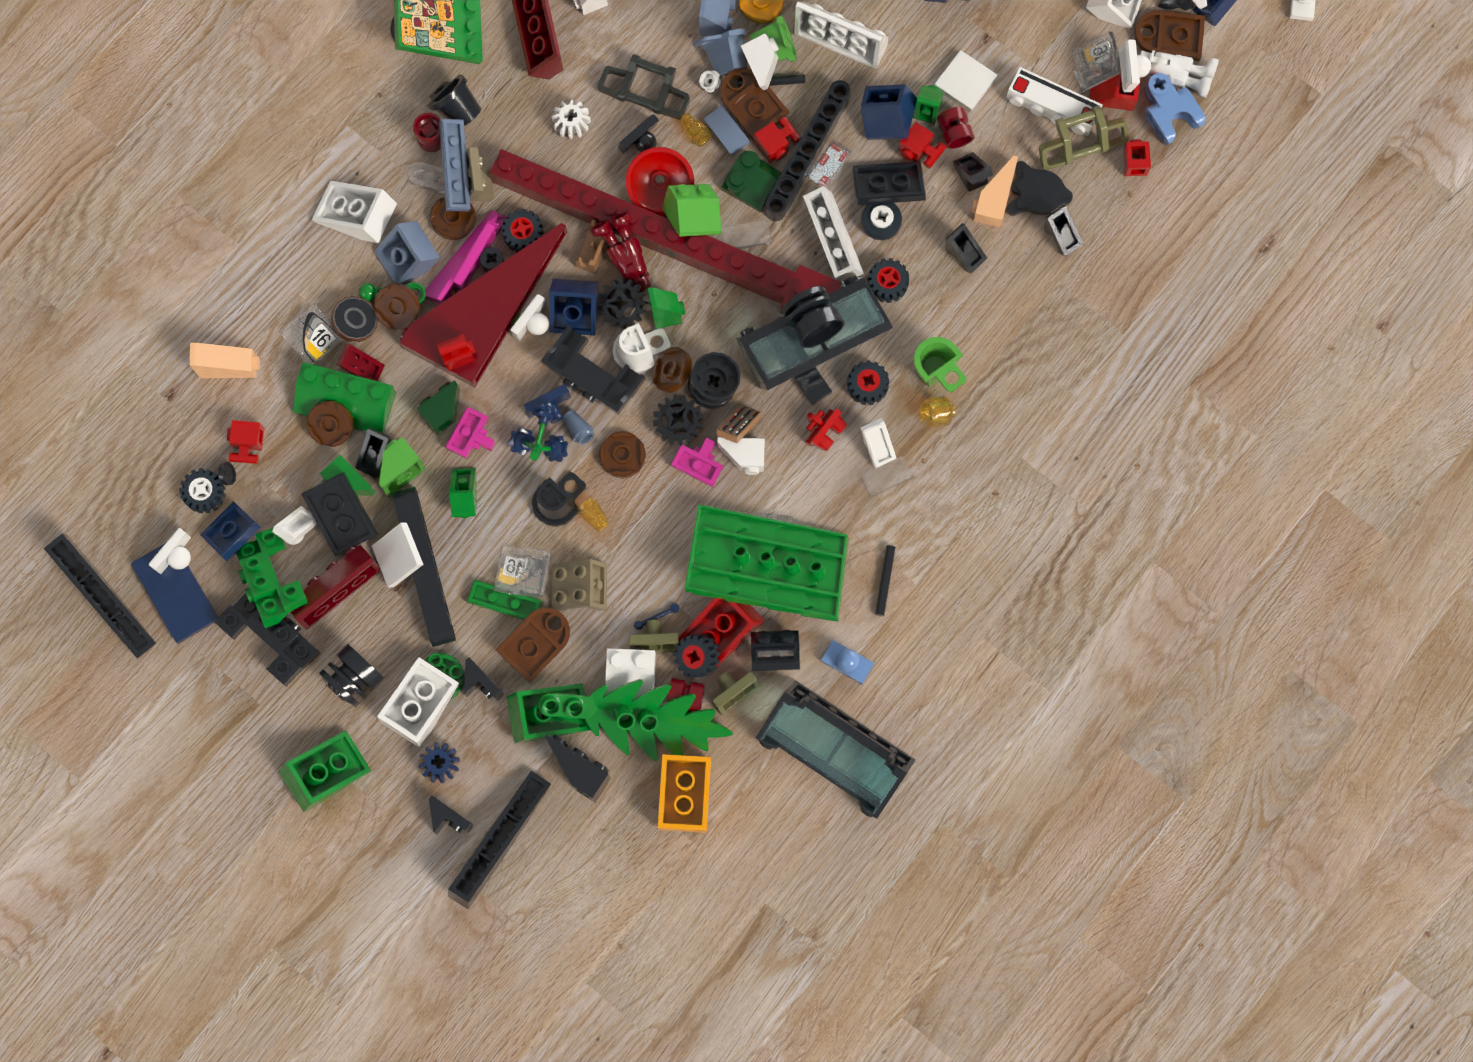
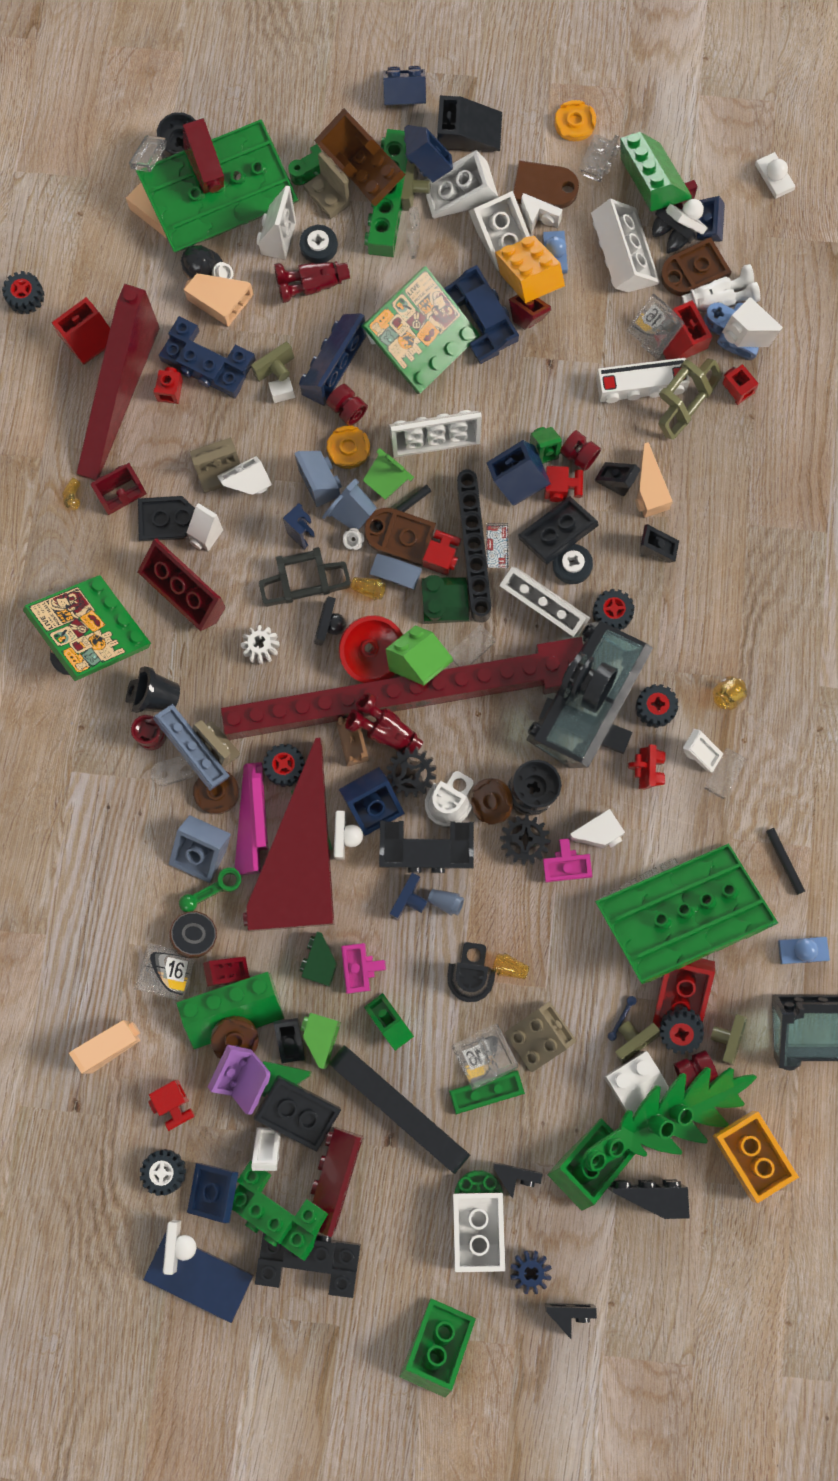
camera: 30 degrees left, 0 degrees up
(100, 594) = (135, 1327): black slope -> none
(227, 473) = (174, 1143): black piece -> none
(313, 454) = (240, 1076): none -> medium lavender bracket
(351, 675) = (405, 1249): black wheel -> none
(355, 210) = (129, 840): white slope -> none
(396, 306) = (222, 899): reddish brown tile -> none
(397, 555) = (371, 1115): white tile -> none
(456, 352) = (304, 906): red brick -> none
(485, 258) = (277, 810): black wheel -> none
(498, 841) = (628, 1306): black slope -> none
(523, 440) = (437, 932): dark blue plant -> none
(534, 643) = (537, 1111): reddish brown tile -> none
(622, 455) = (498, 899): reddish brown tile -> none
(665, 308) = (450, 753): green slope -> none
(670, 38) = (296, 525): none -> dark blue hinge
(738, 423) = (578, 810): tile -> none
(762, 58) = (387, 492): white slope -> none
(775, 650) = (742, 982): black window -> none
(936, 359) = (704, 650): bright green container -> none
(965, 81) = (559, 407): white tile -> none
(1037, 191) = (680, 460): black tile -> none
(1063, 230) = (725, 479): slope -> none
(1132, 66) = (691, 310): white tile -> none
(1174, 111) = (751, 326): none -> white slope

